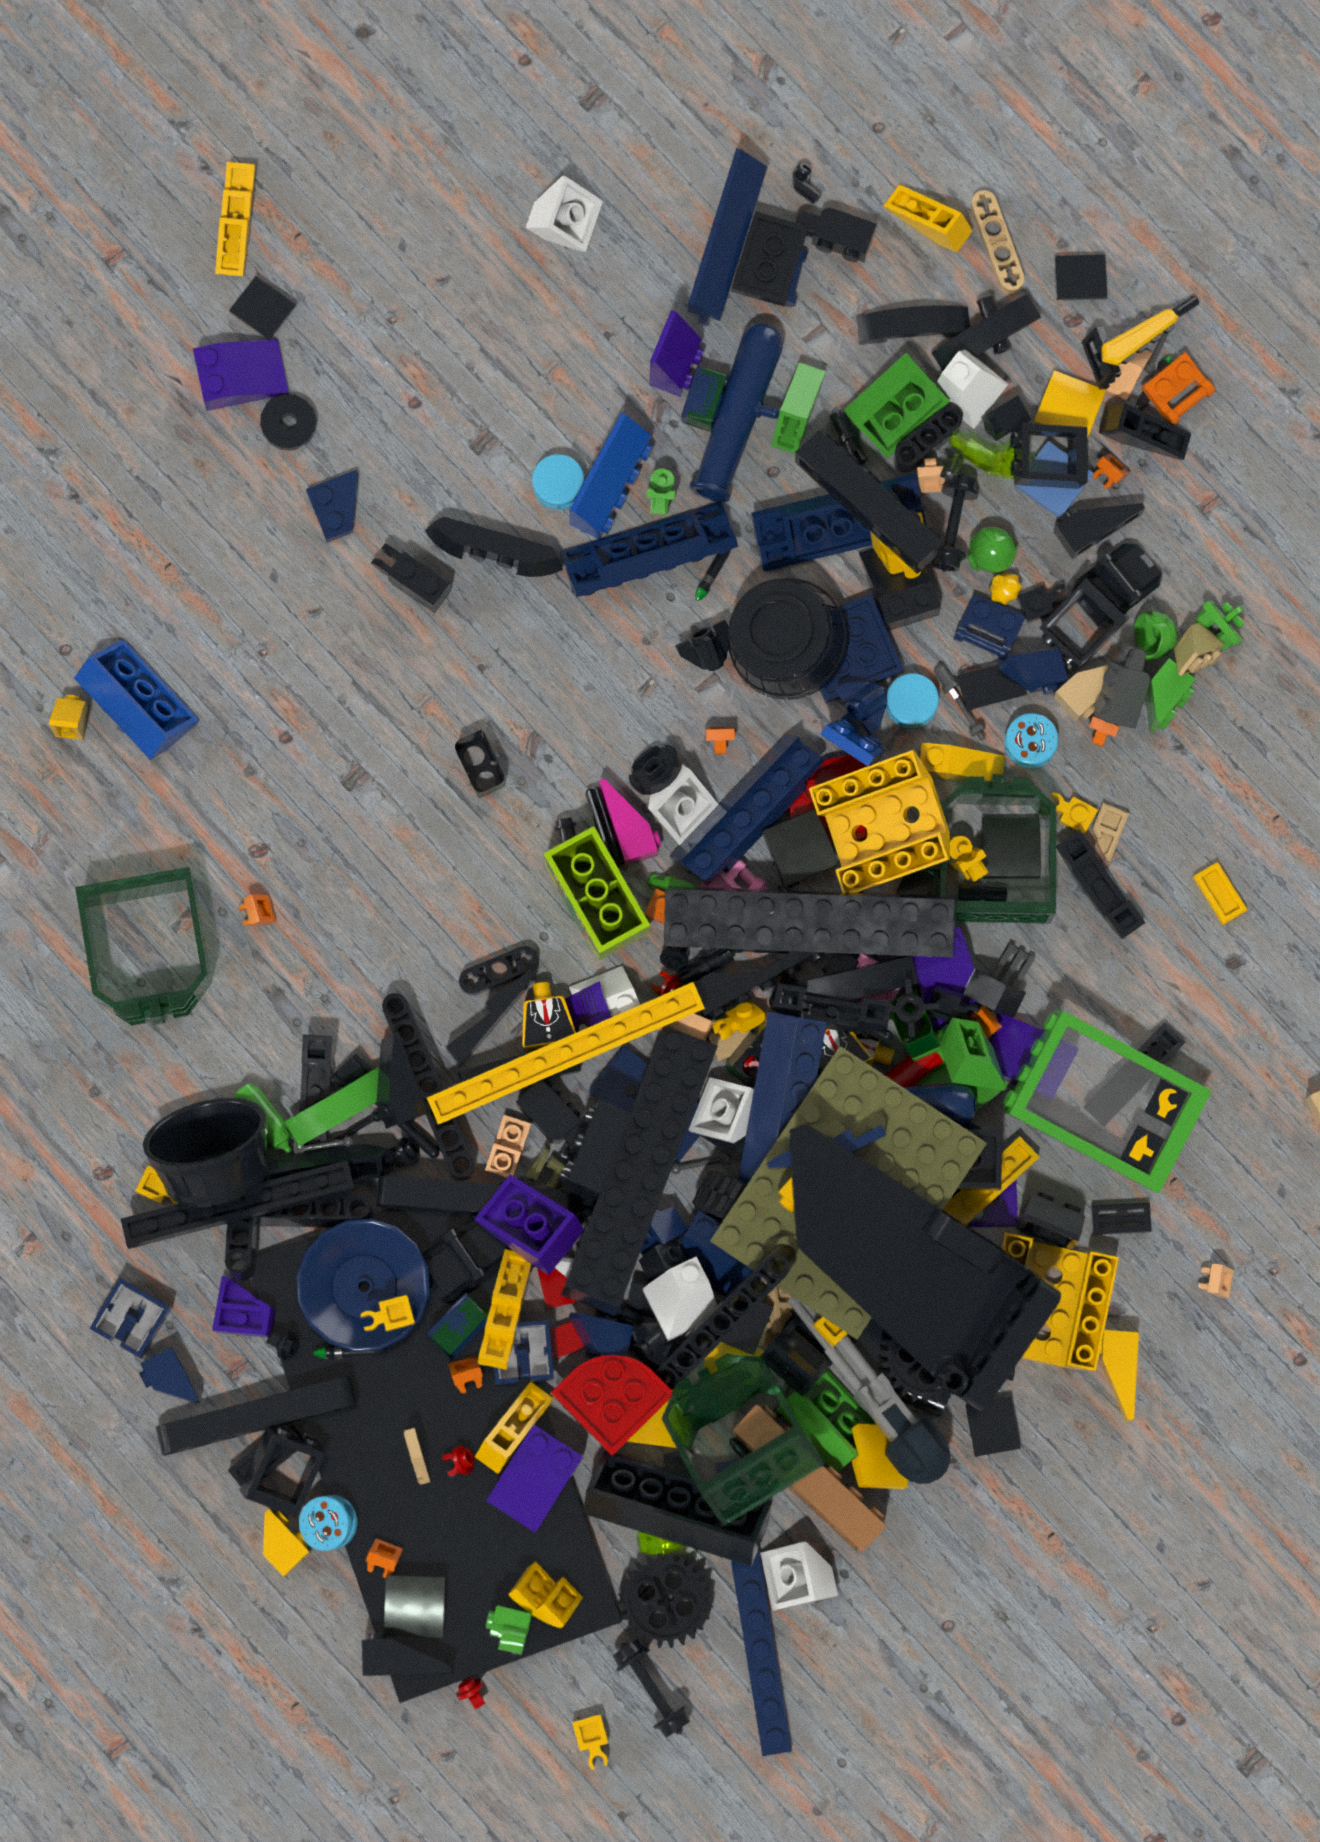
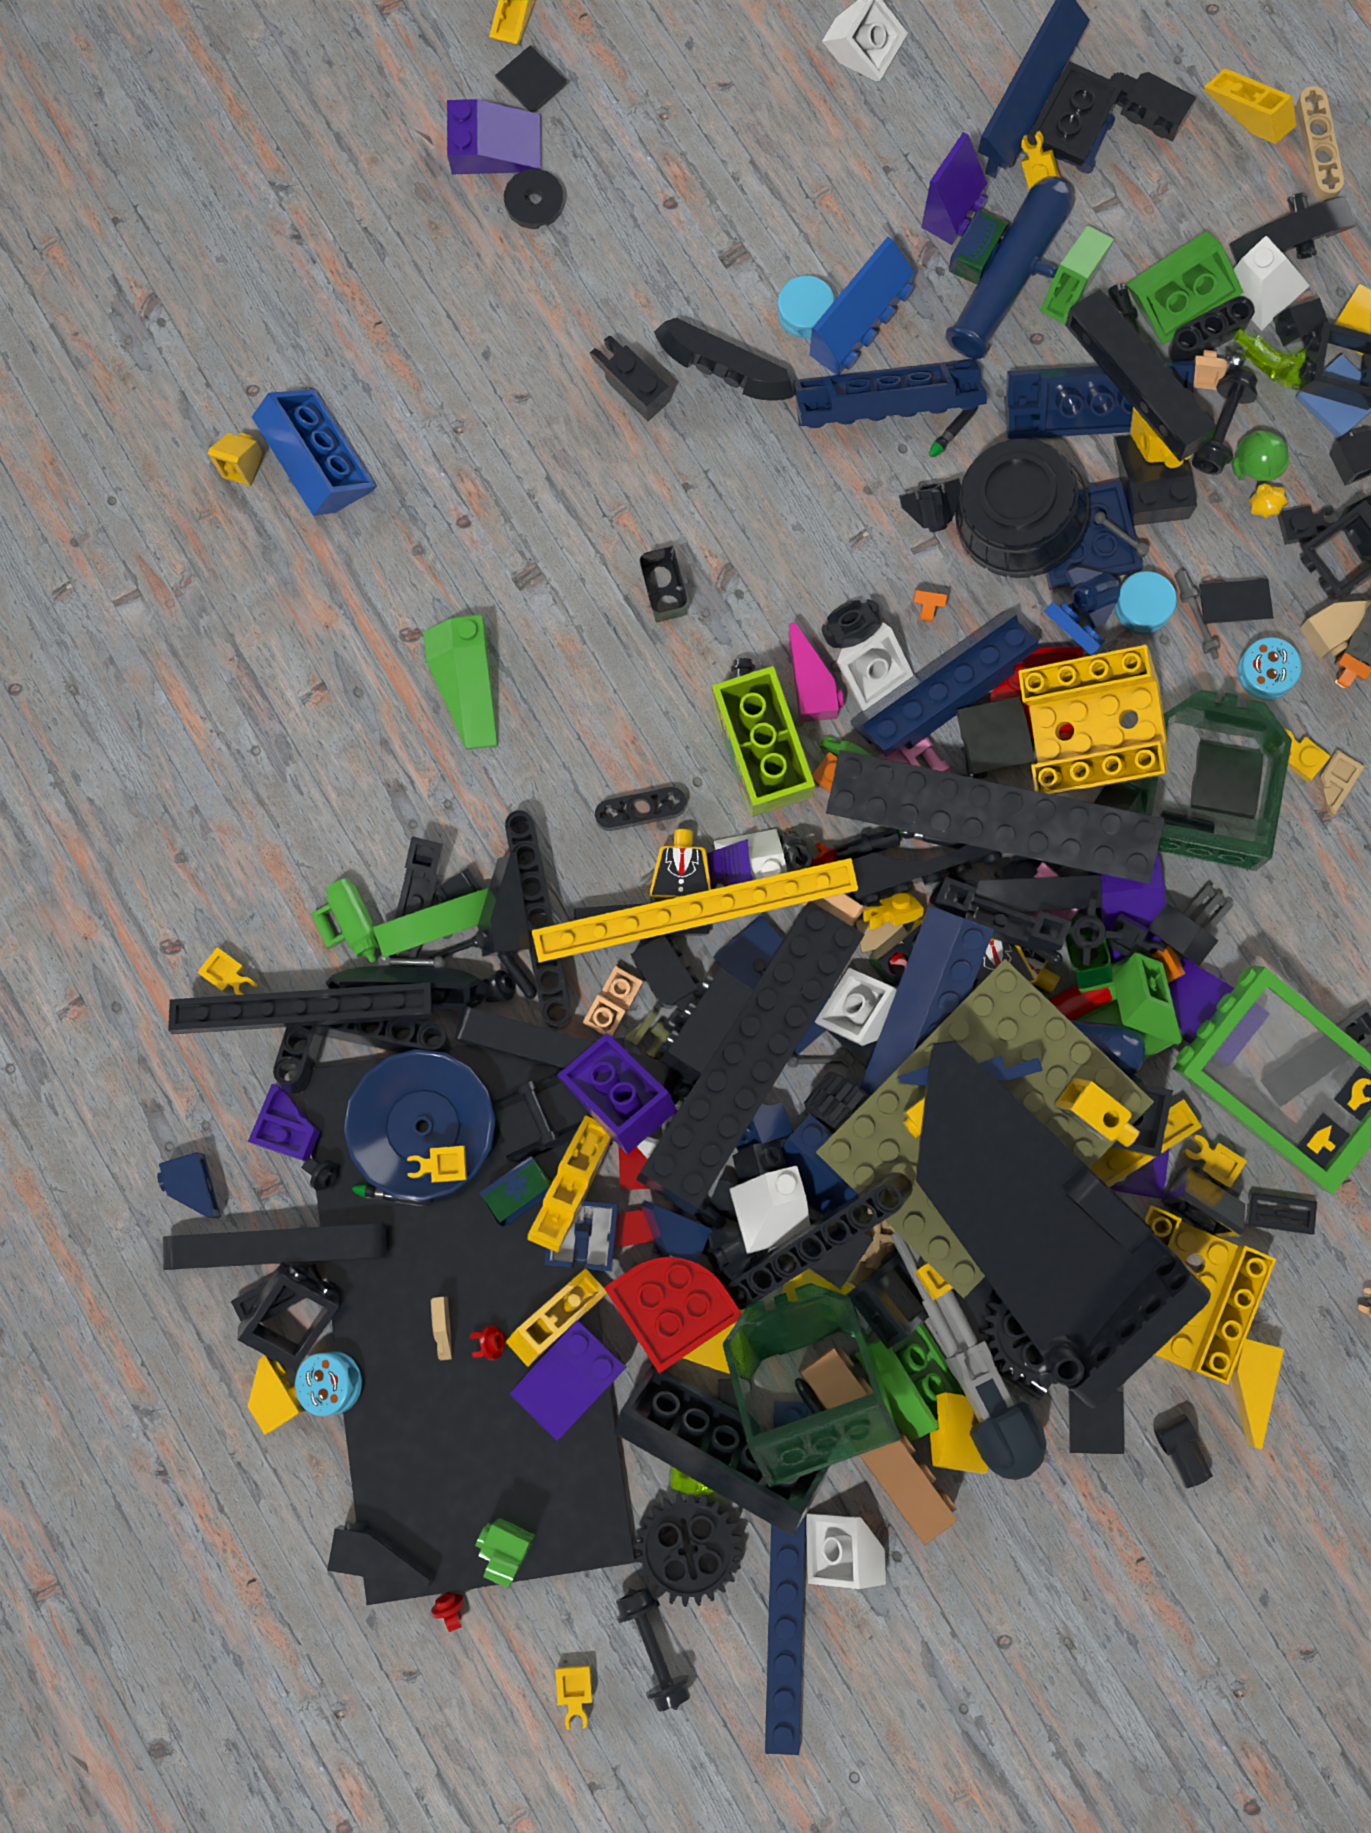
camera: 20 degrees right, 0 degrees up
(130, 1318) = (163, 1110): piece -> none
(152, 1006) = (264, 647): clear green container -> none
(210, 1151) = (280, 944): black piece -> none
(258, 910) = (394, 696): orange tile -> none
(312, 875) = (461, 670): none -> bright green wedge
(335, 505) = (565, 290): dark blue wing -> none
(384, 1556) = (381, 1434): orange tile -> none
(414, 1606) = (404, 1499): pearl dark grey slope -> none
(465, 1371) = (514, 1243): orange tile -> none
(498, 1006) = (633, 846): black slope -> none
(544, 1597) = (551, 1521): yellow slope -> none
(603, 824) = (785, 671): black axle -> none
(643, 981) = (795, 850): none -> black pin
(661, 491) = (914, 332): bright green hips -> none
(674, 958) = (834, 830): black plate -> none
(744, 311) = (1038, 163): none -> yellow plate
(802, 185) = (1122, 49): black arm -> none
(900, 654) = (1141, 549): none -> dark grey hinge
(912, 322) = (1212, 206): black slope -> none
(927, 1156) = (1088, 1105): none -> yellow torso
(959, 763) = (1183, 676): yellow slope -> none
(966, 858) = (1179, 783): yellow hips -> none
(992, 619) = (1248, 533): dark blue plate -> none
(1036, 670) = (1289, 592): dark blue slope -> none
(1060, 1185) = (1218, 1162): none -> yellow plate
(1066, 1429) = (1179, 1442): none -> black piece
(1098, 885) = (1317, 839): black slope -> none

